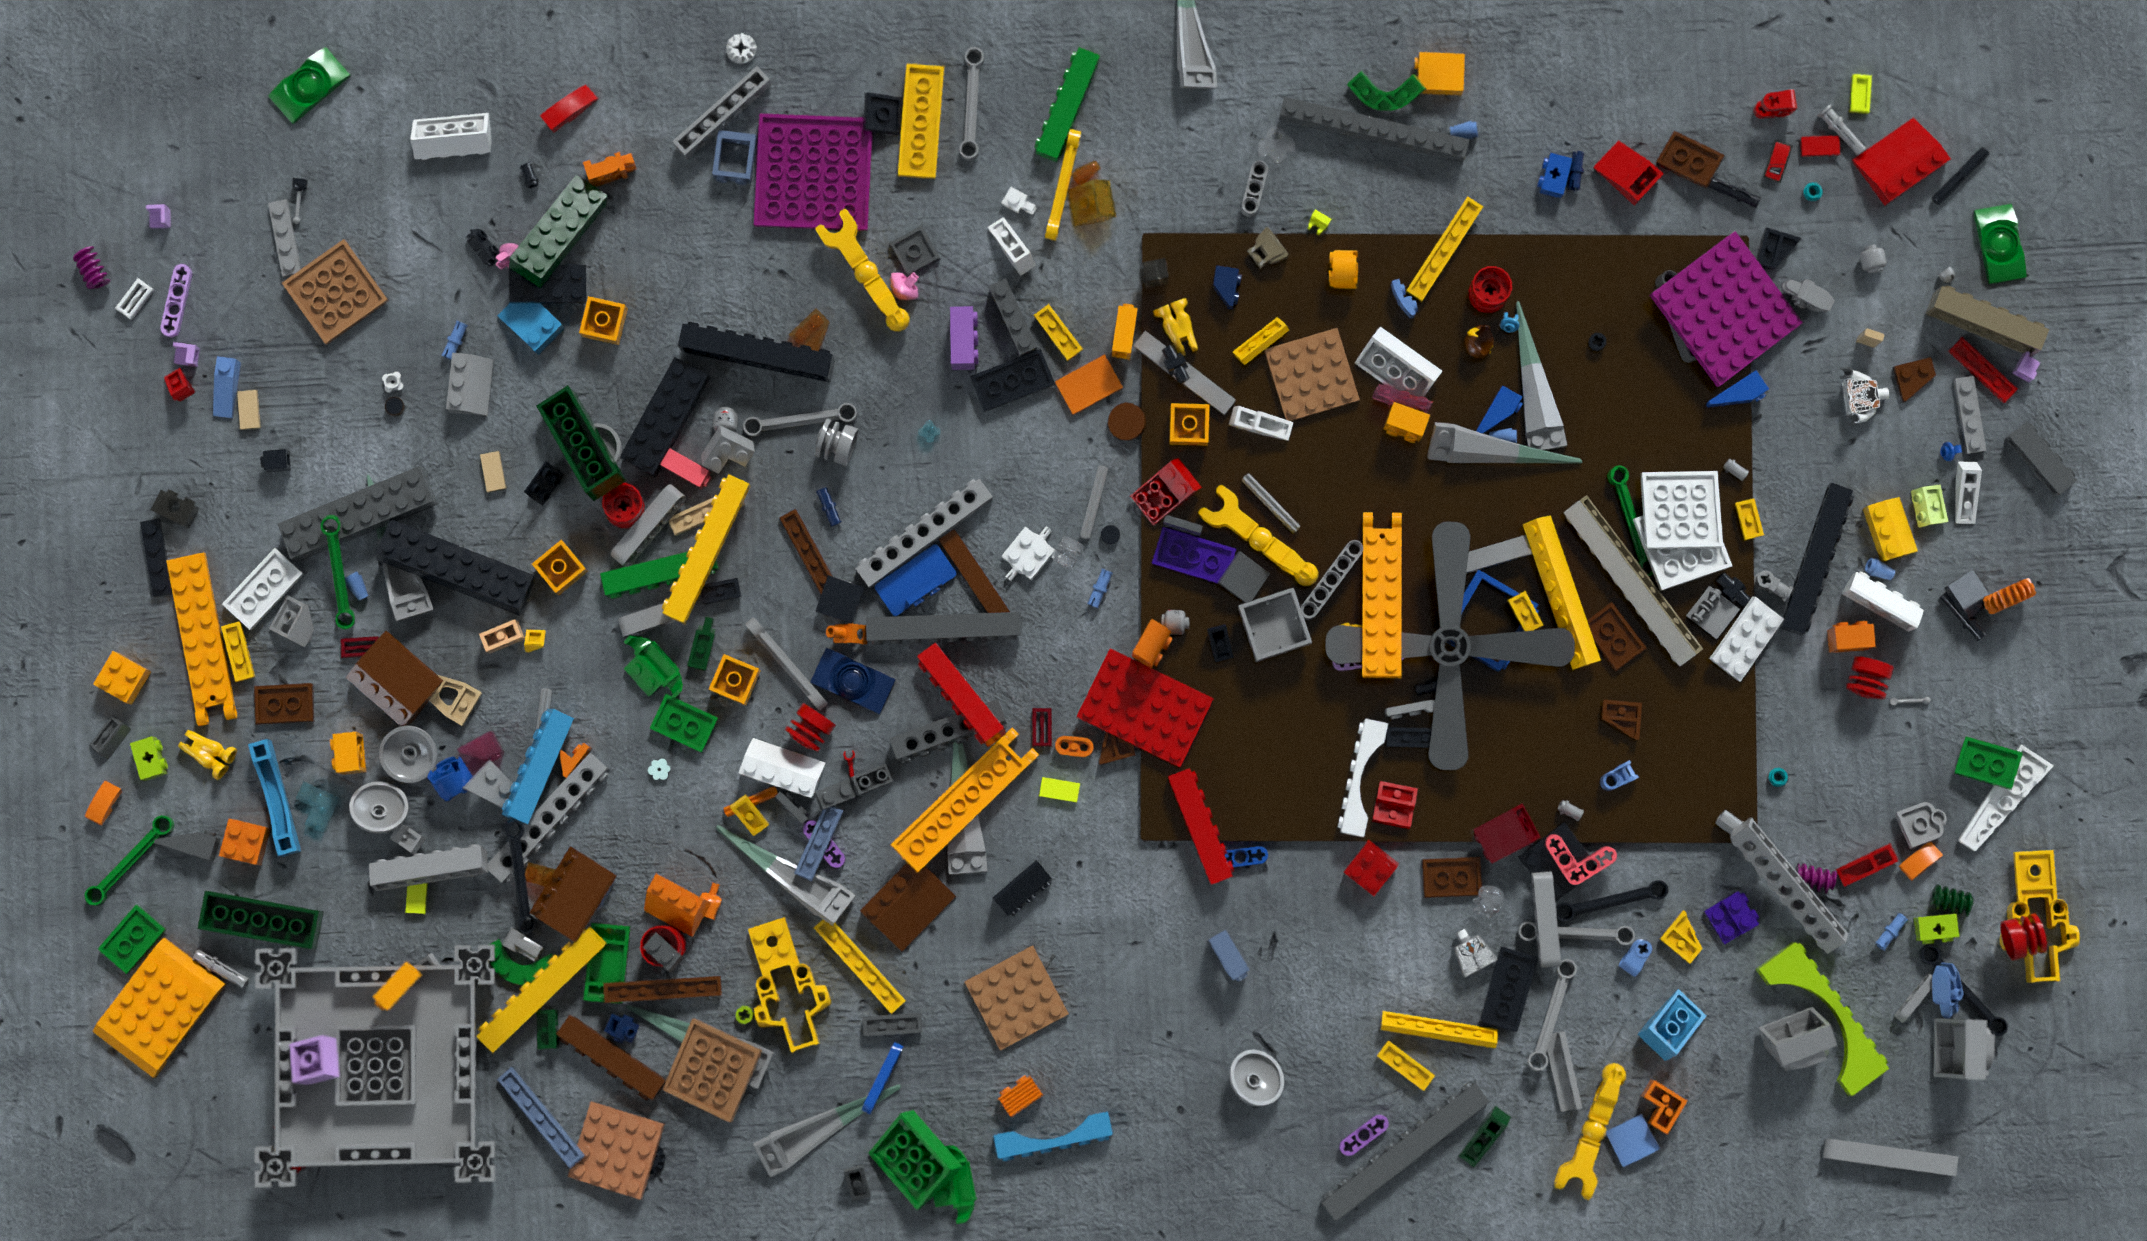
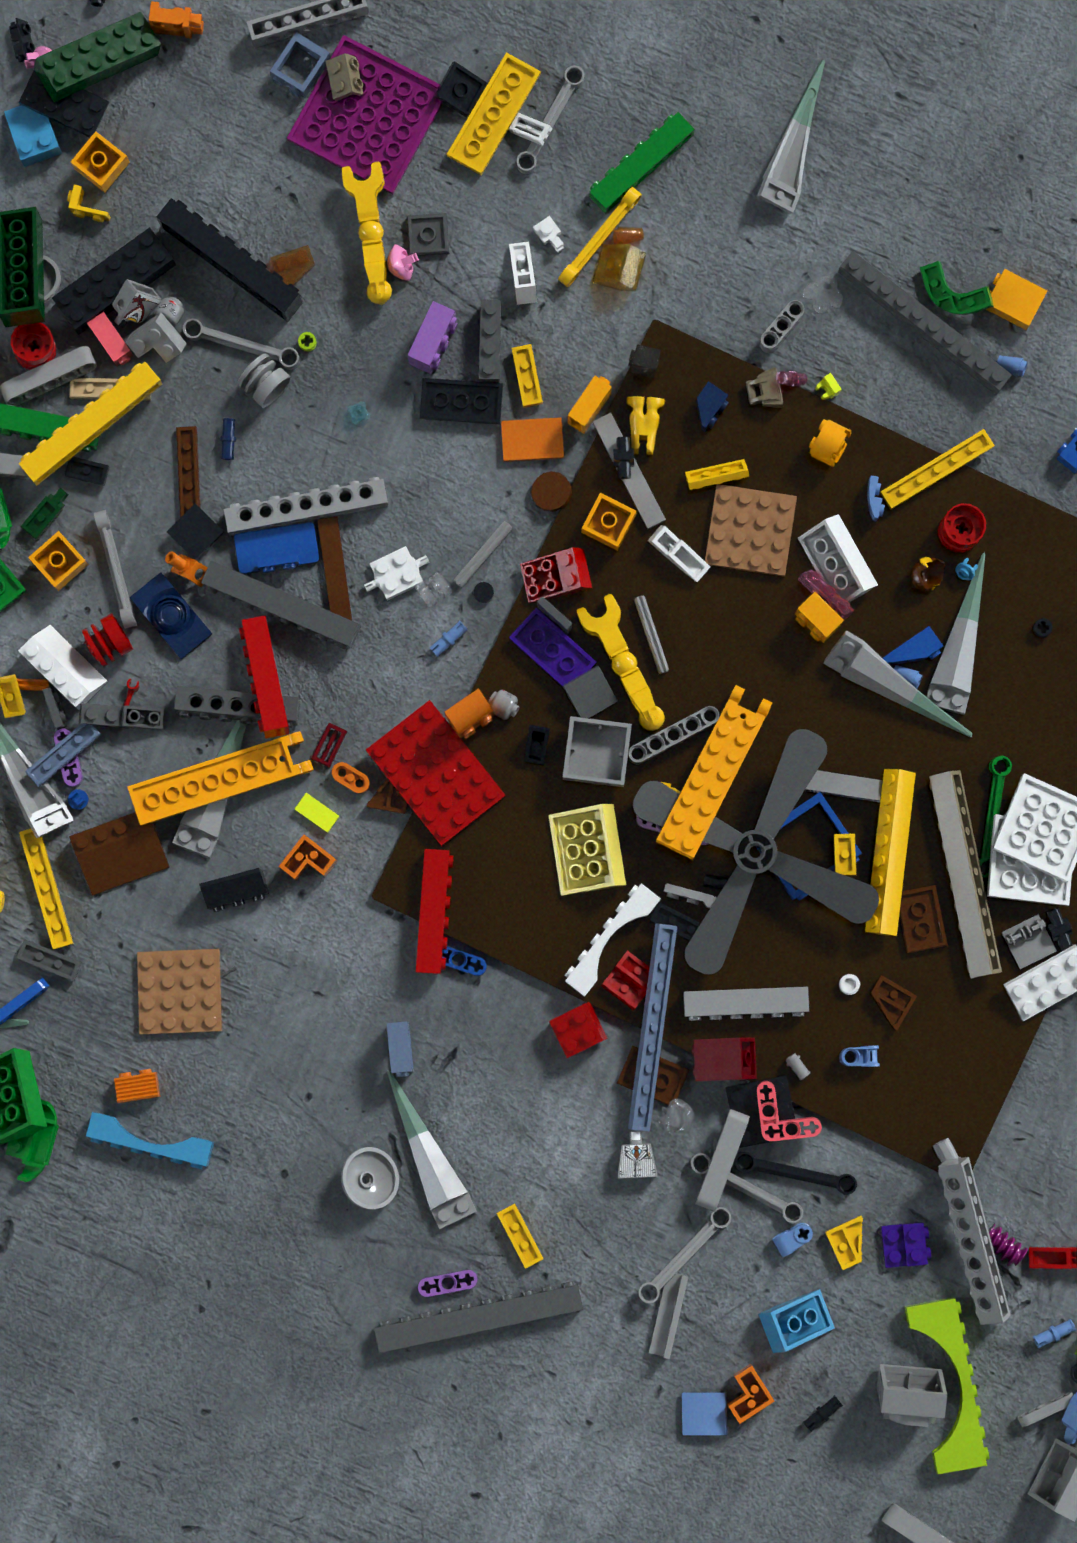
camera: 30 degrees right, 0 degrees up
(596, 362) = (75, 200): none -> yellow bracket
(693, 428) = (134, 302): none -> light grey torso
(778, 149) = (344, 76): none -> dark tan bracket
(850, 390) = (302, 337): none -> lime bush
(850, 875) = (78, 799): none -> blue plate
(973, 120) = (542, 134): none -> white tile
(1071, 827) = (305, 854): none -> orange brick
(1284, 229) = (791, 378): none -> clear pink pin
(1305, 711) = (587, 849): none -> light yellow slope
(1321, 1057) = (443, 1188): none -> light grey plate
(1433, 835) = (652, 1027): none -> sand blue plate
(1439, 1029) = (569, 1216): yellow plate -> none
(1485, 1136) = (563, 1340): dark green slope -> none
(1501, 776) = (746, 1001): none -> light grey brick
(1508, 989) = (655, 1210): black plate -> none
(1580, 720) = (849, 984): none -> white tile
(1593, 1132) = (669, 1387): yellow piece -> none
(1731, 1092) = (822, 1413): none -> black pin
(1784, 777) = (1022, 1131): teal plate -> none

